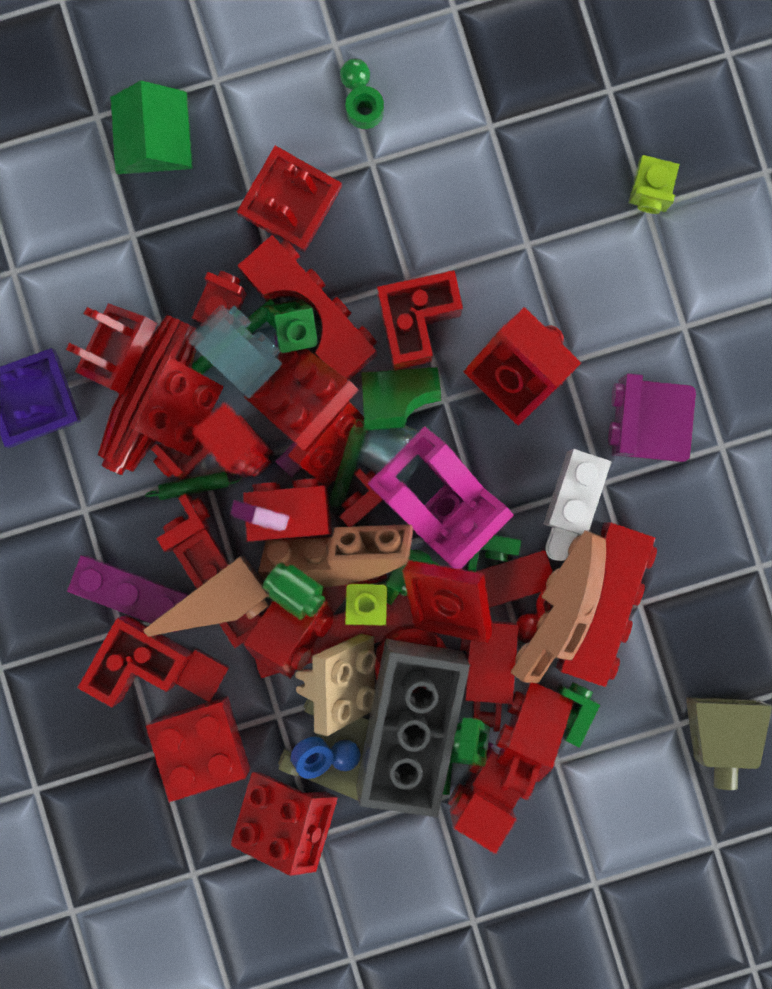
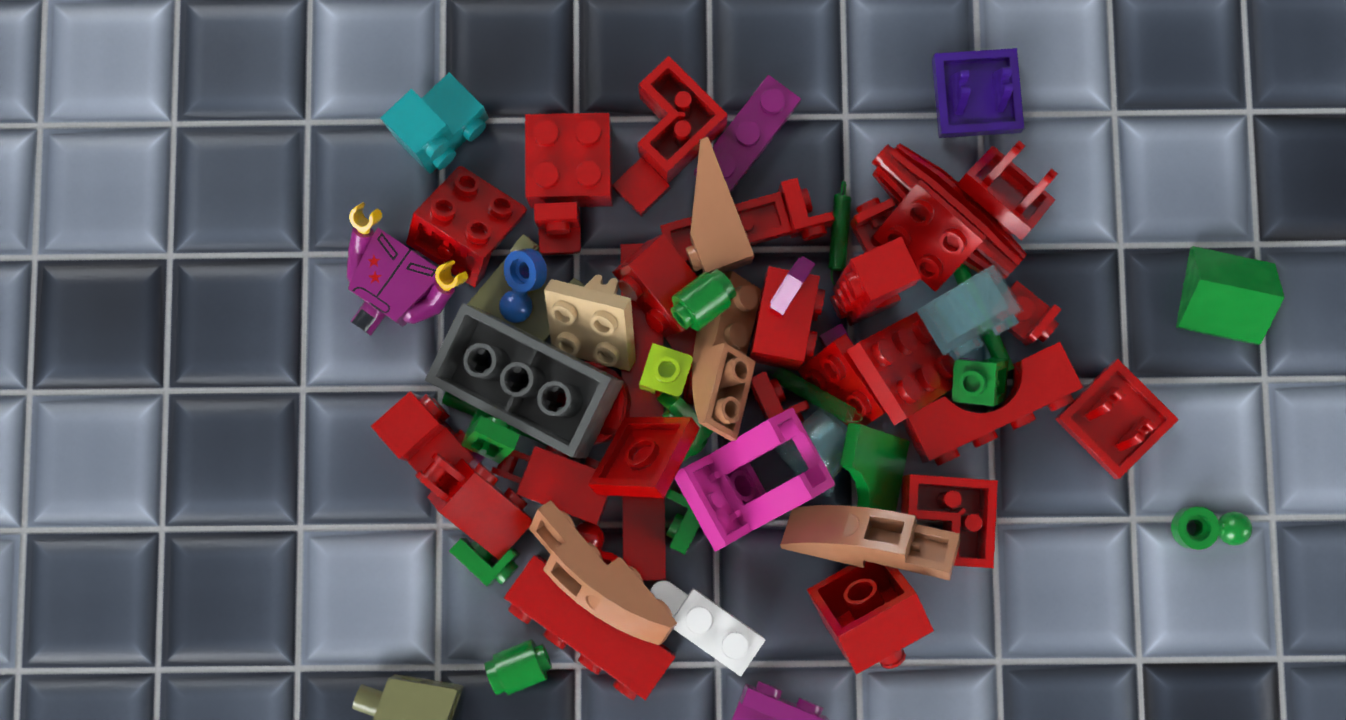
camera: 110 degrees right, 5 degrees down
(199, 880) = (436, 123): none -> teal brick
(263, 738) = (558, 227): none -> red bracket
(351, 875) = (393, 277): none -> magenta torso
(458, 383) = (871, 535): none -> nougat slope
(659, 655) = (518, 667): none -> green brick

